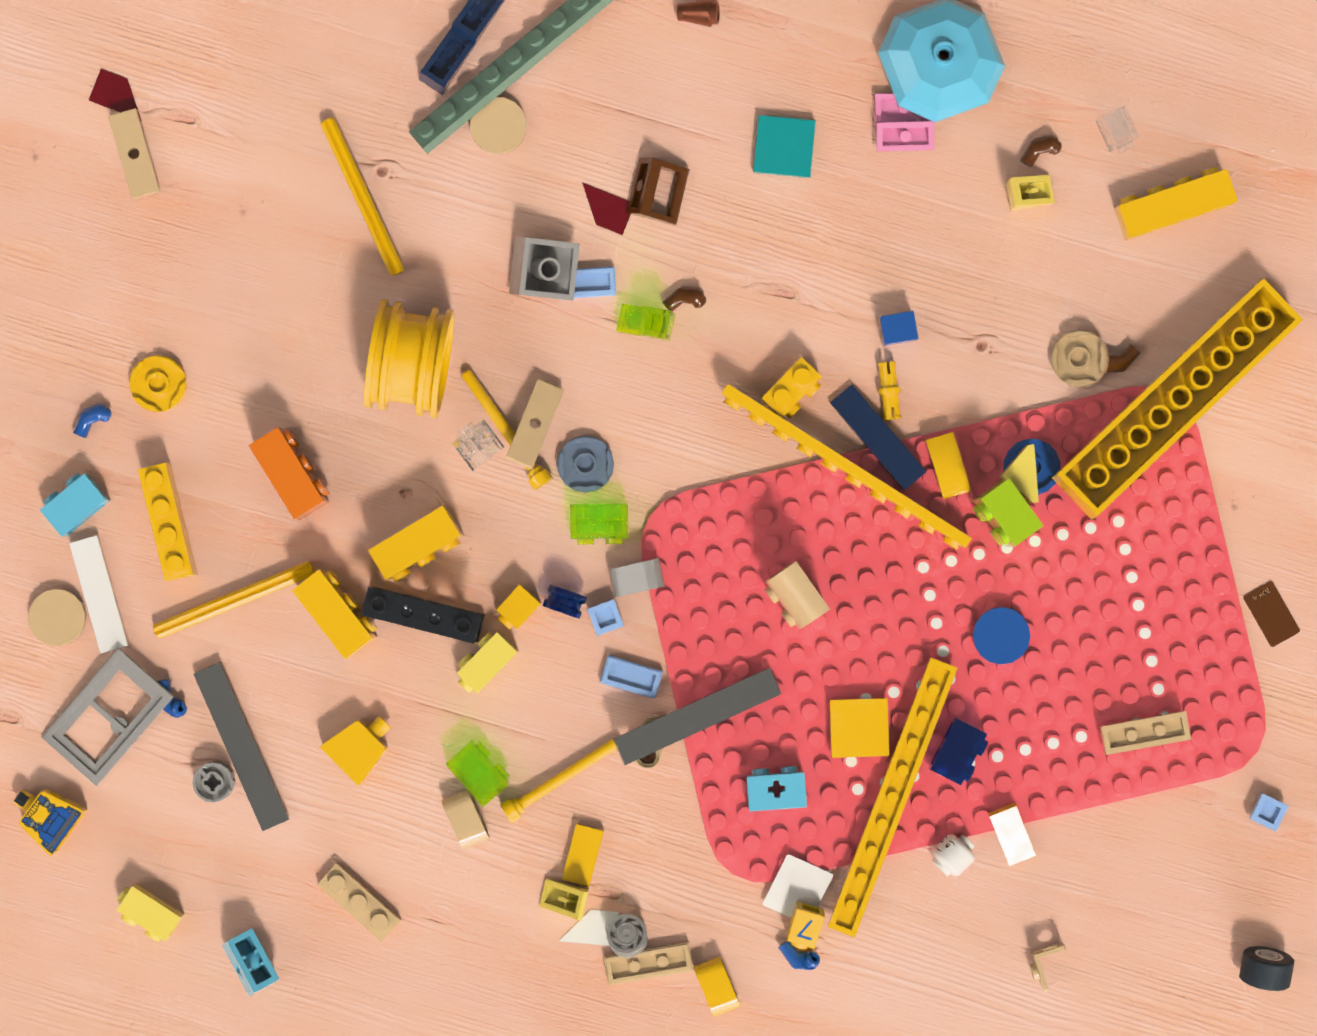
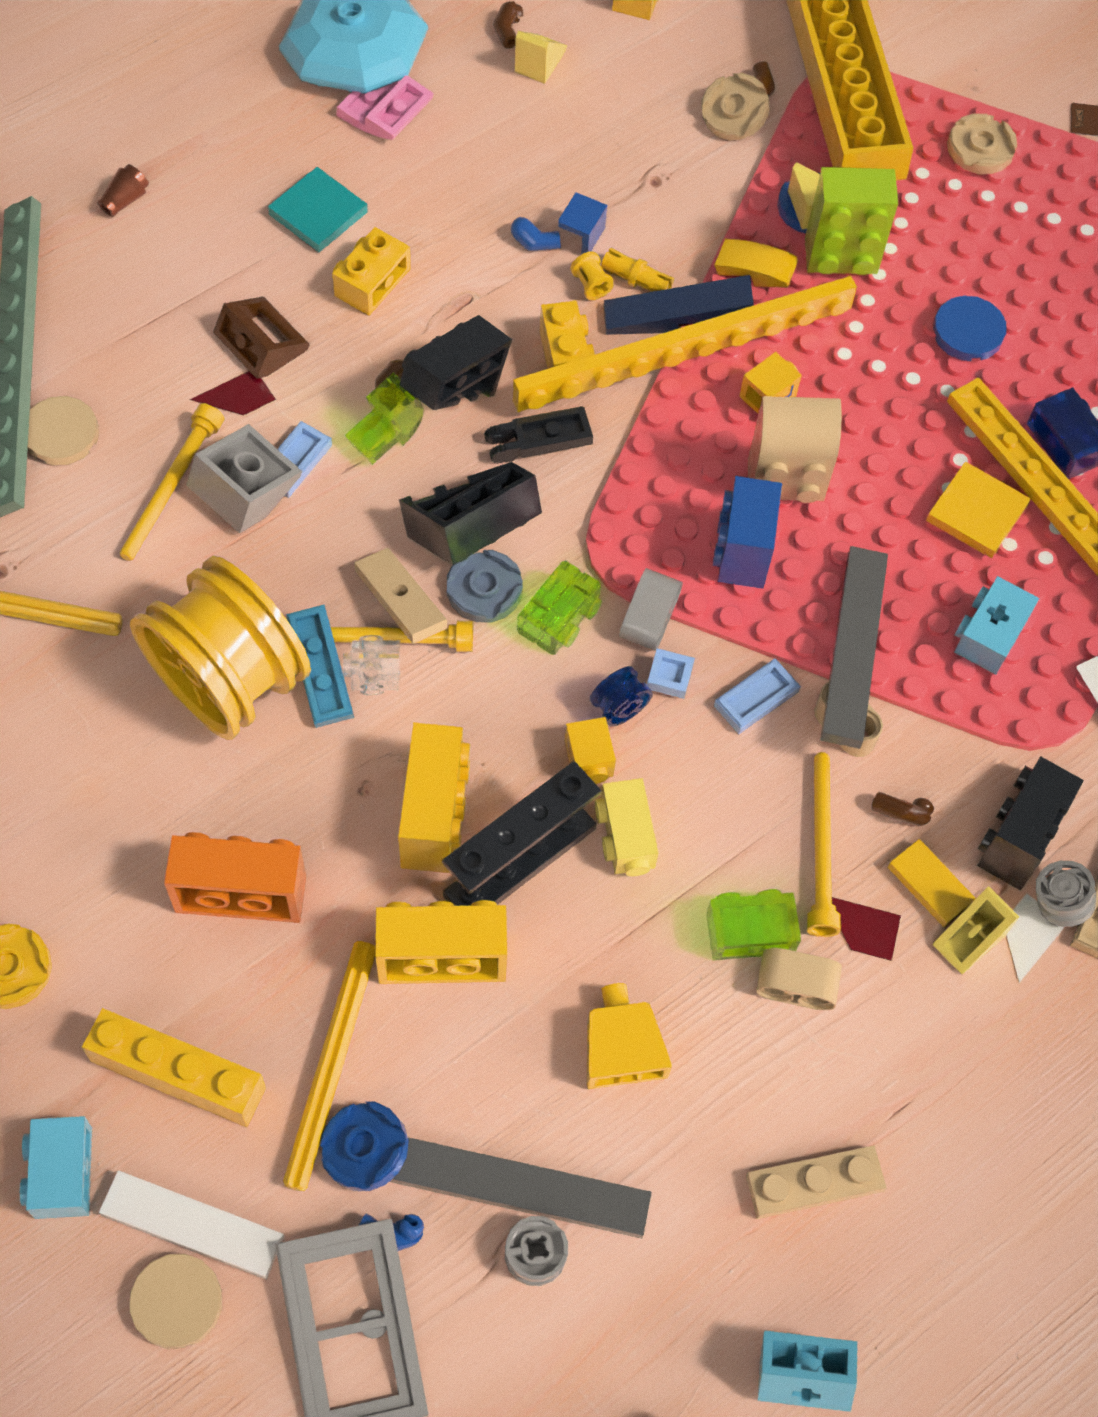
camera: 60 degrees left, 25 degrees down
(201, 652) = (364, 1146): none -> blue tile
(457, 411) = (325, 683): none -> dark azure tile
(529, 835) = (868, 928): none -> dark red sticker
(565, 210) = (205, 422): none -> yellow piece
(614, 810) = (915, 814): none -> reddish brown arm
(620, 426) = (474, 514): none -> black wedge
(659, 887) = (1028, 822): none -> black wedge
(705, 343) = (457, 364): none -> black wedge
(717, 422) = (539, 434): none -> black hinge
(723, 604) = (747, 531): none -> blue brick
(757, 222) = (371, 270): none -> yellow brick
(854, 541) = (770, 378): none -> yellow brick
(862, 364) = (592, 275): none -> yellow bush
(865, 301) = (532, 238): none -> blue arm
(1173, 546) = (982, 144): none -> tan tile

